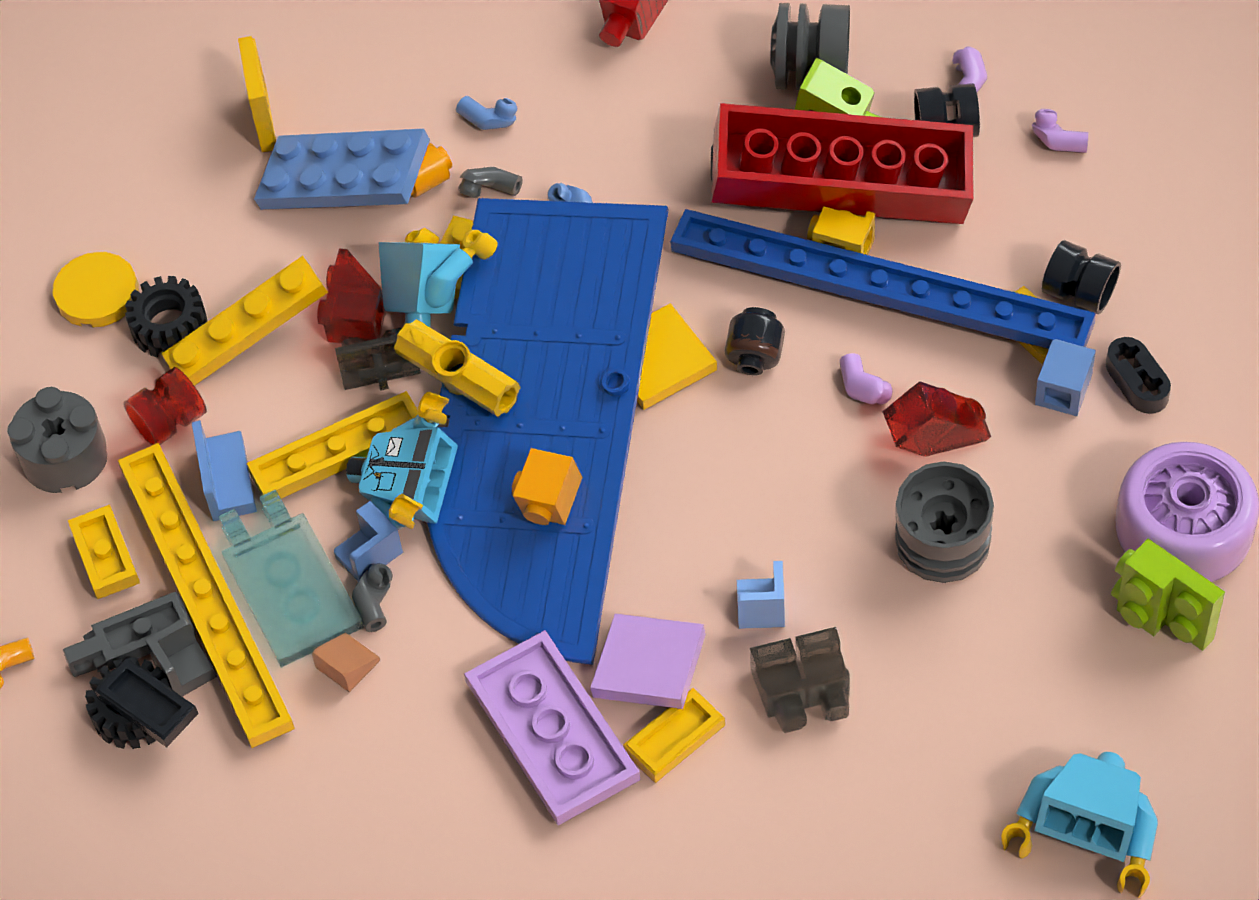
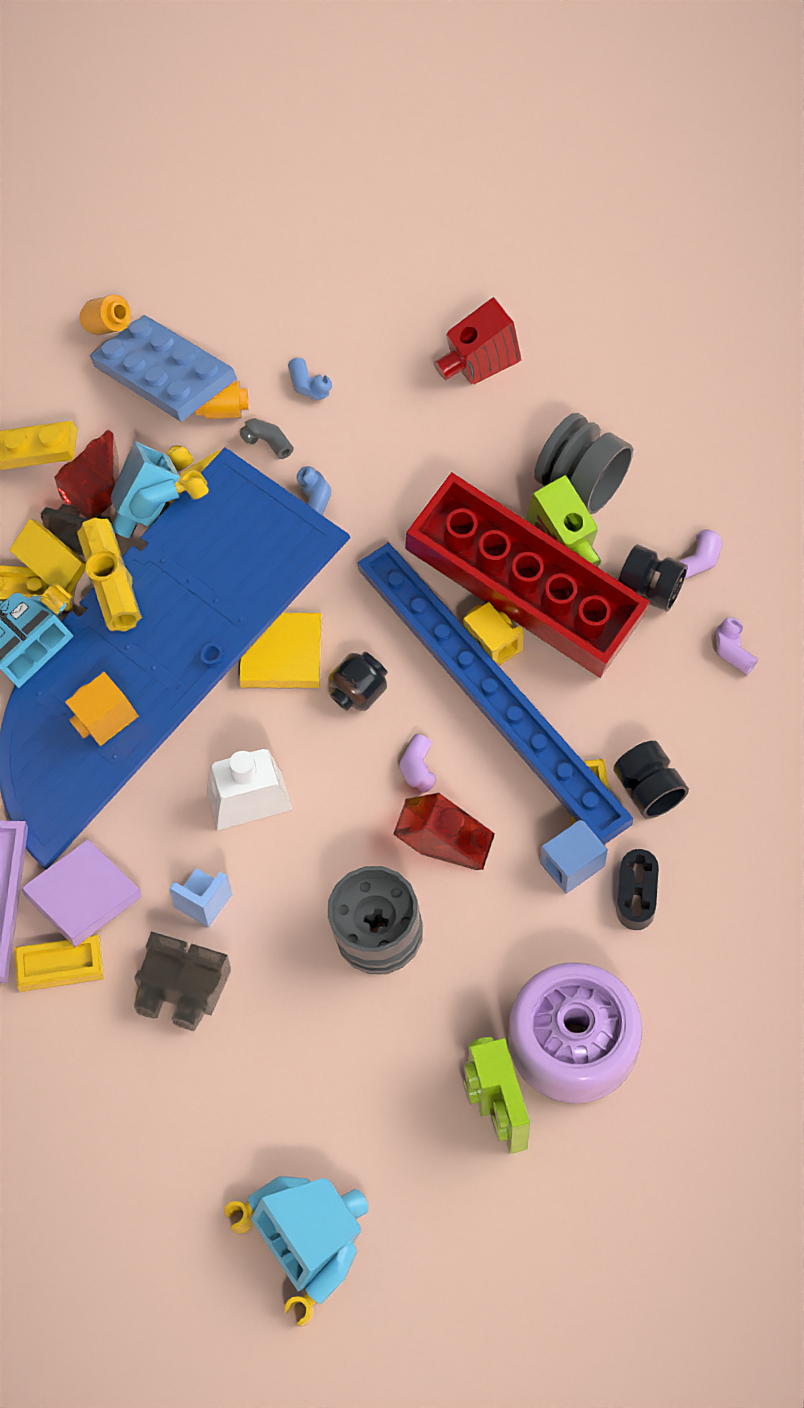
camera: 30 degrees right, 5 degrees up
(244, 152) = (105, 315): none -> light orange brick
(257, 93) = (145, 271): yellow tile -> none
(377, 388) = (48, 556): none -> yellow tile
(731, 485) = (246, 788): none -> white torso

